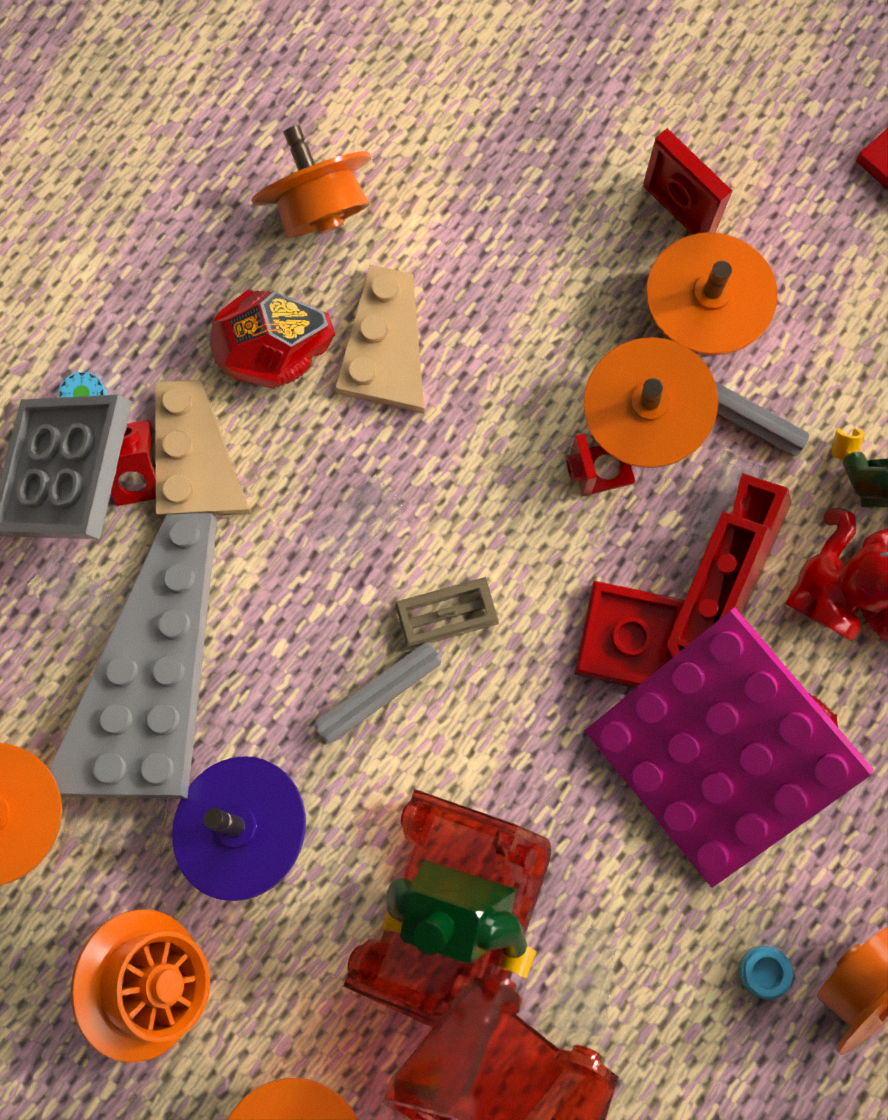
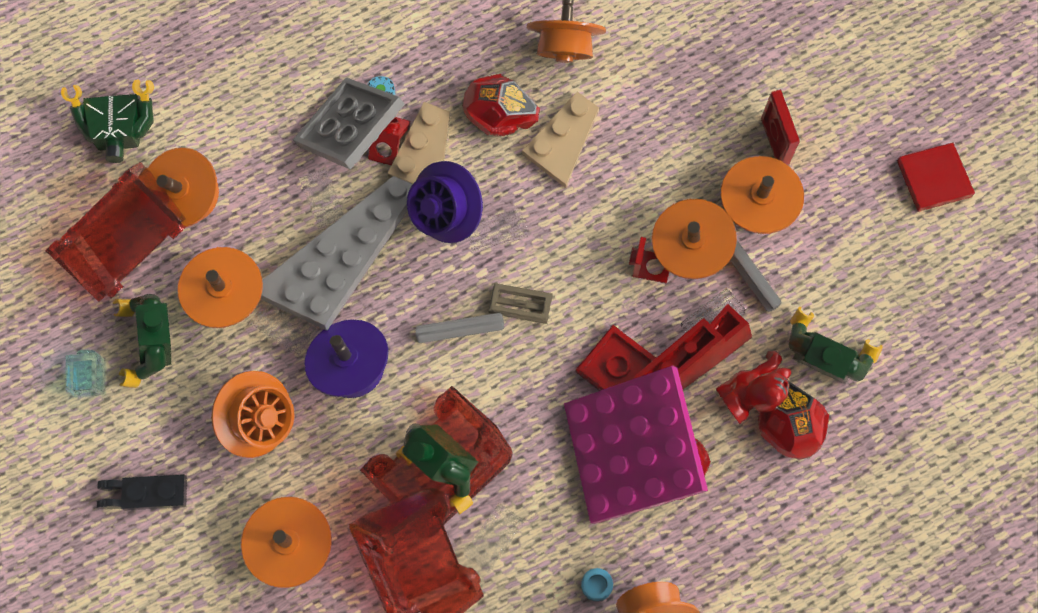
camera: 25 degrees right, 5 degrees down
(266, 519) = (445, 202): none -> dark purple piece

